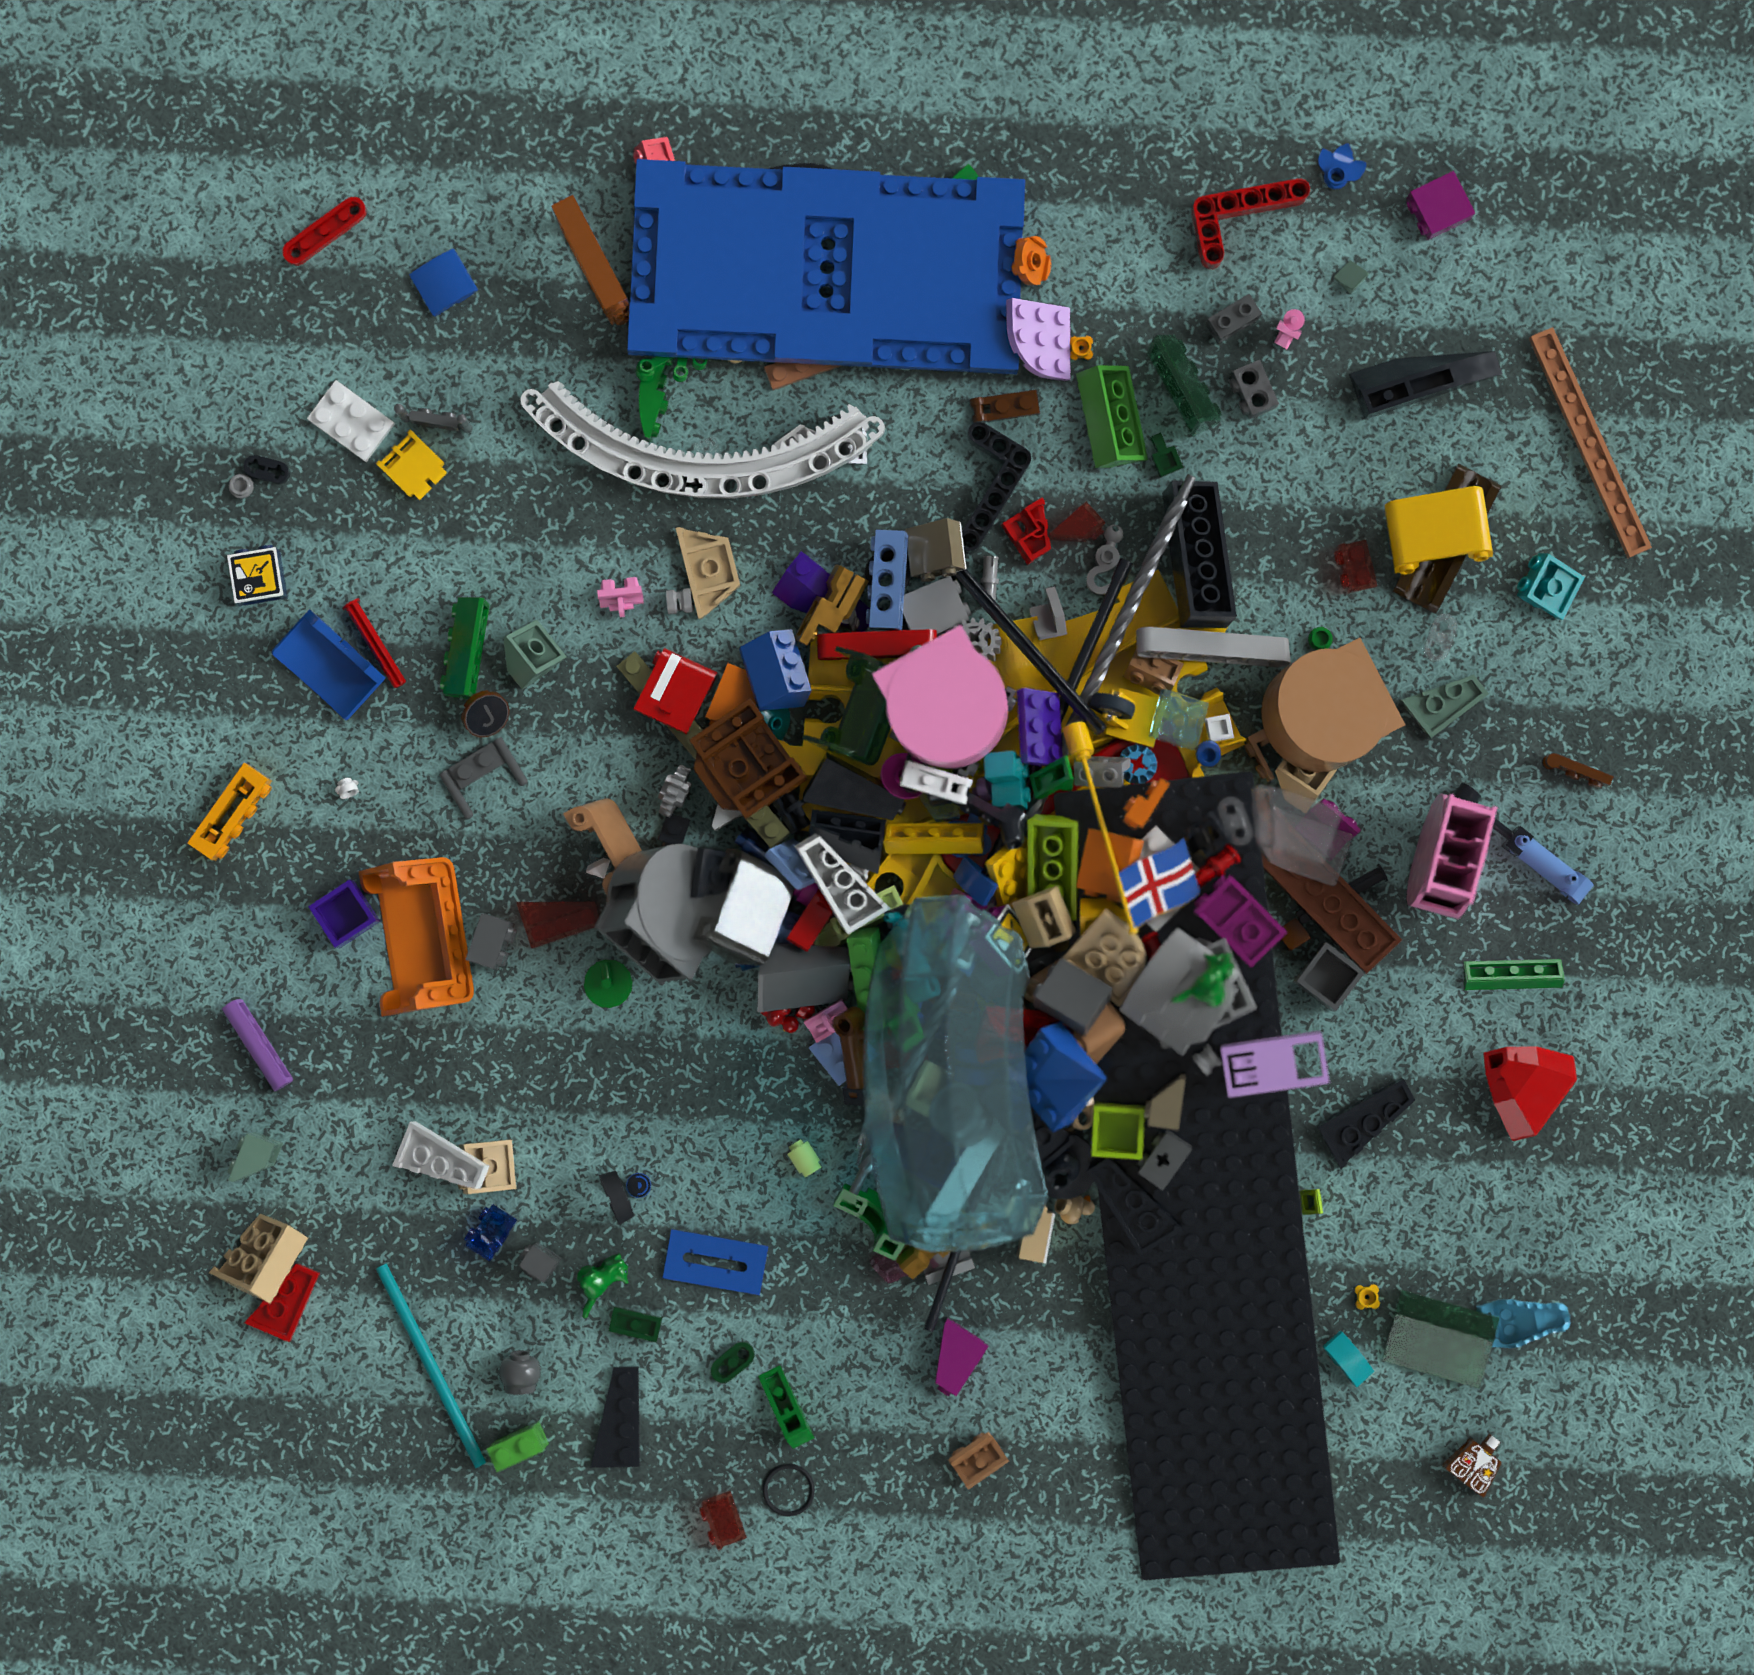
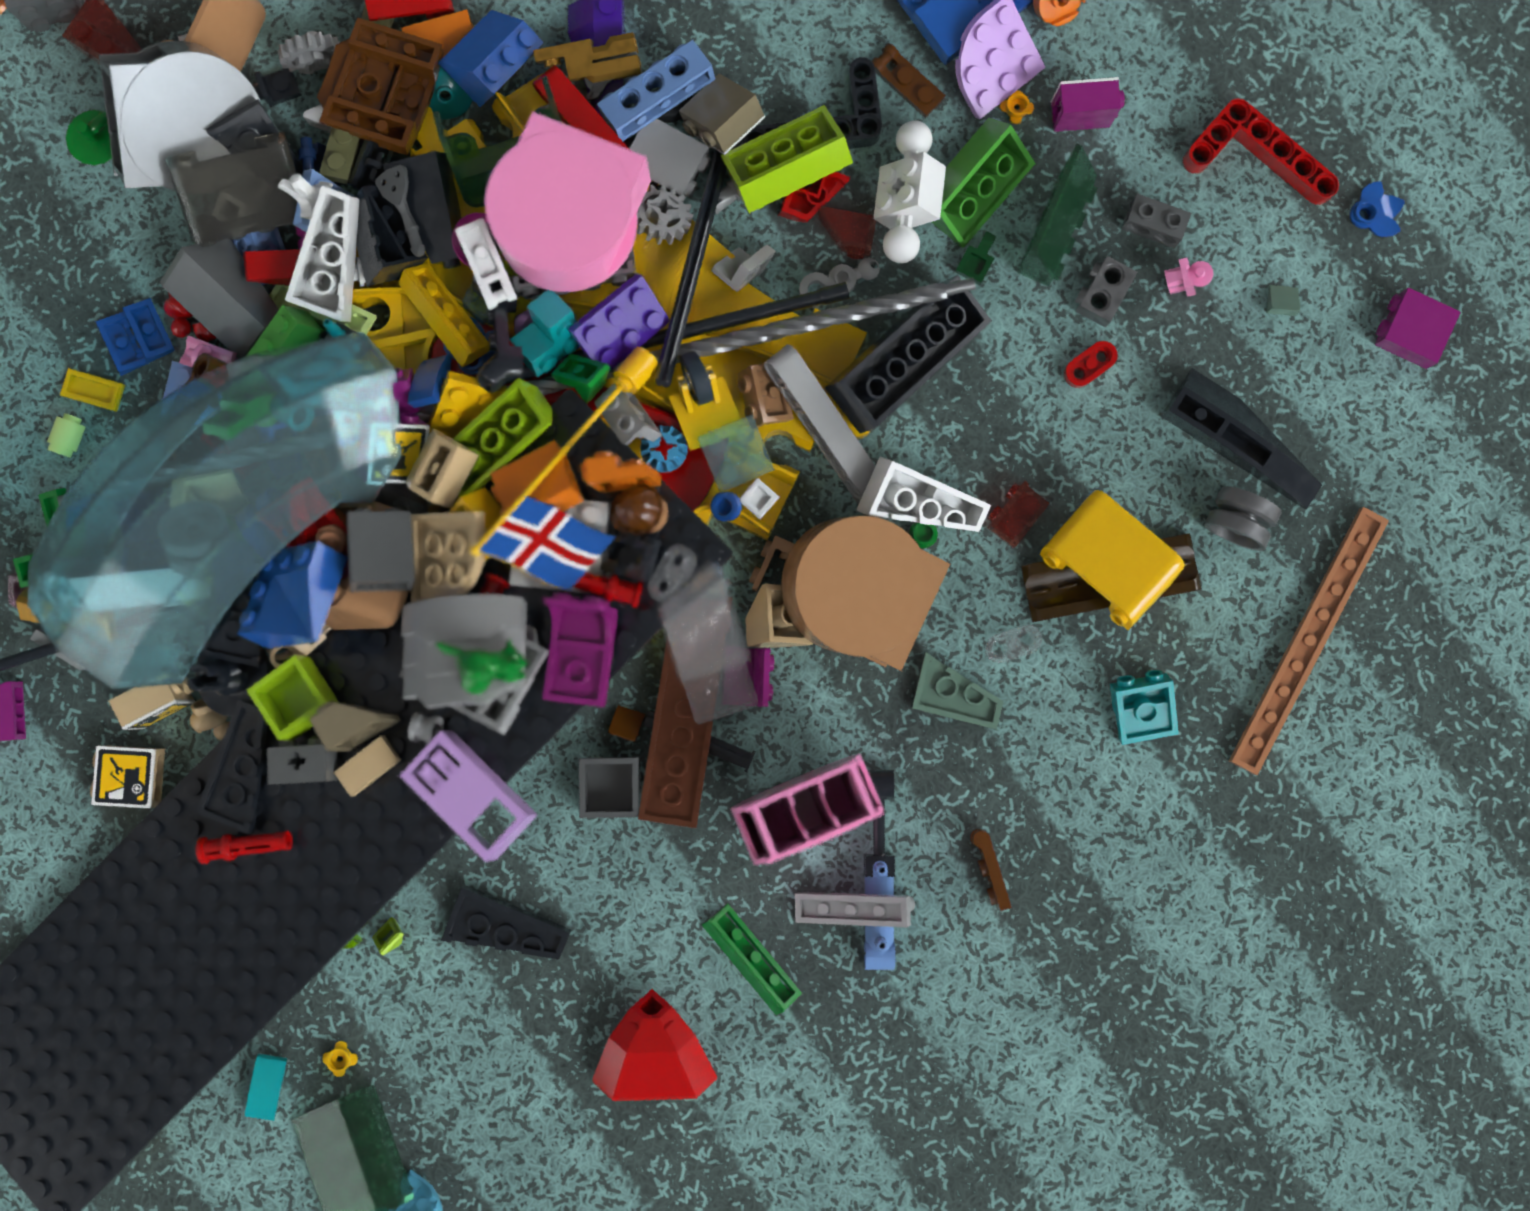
camera: 50 degrees right, 0 degrees up
(772, 1049) = (147, 331): none -> blue slope
(784, 1117) = (92, 390): none -> yellow tile
(789, 864) = (303, 192): none -> white piece
(838, 808) = (398, 199): none -> dark grey piece
(1002, 530) = (787, 158): none -> lime slope
(1037, 1021) = (332, 537): none -> nougat plate
(1069, 1292) = (127, 776): none -> piece
(1088, 467) = (909, 192): none -> white brick
(1121, 303) = (1086, 104): none -> magenta piece
(1176, 811) = (639, 510): none -> reddish brown piece
(1180, 1251) = (230, 846): none -> red pin
(1199, 1118) = (367, 766): none -> tan tile
(1294, 438) = (1090, 365): none -> red plate
(1294, 627) = (911, 496): none -> white wedge
(1476, 420) = (1243, 518): none -> flat silver wheel
(1533, 880) = (854, 909): none -> light grey piece

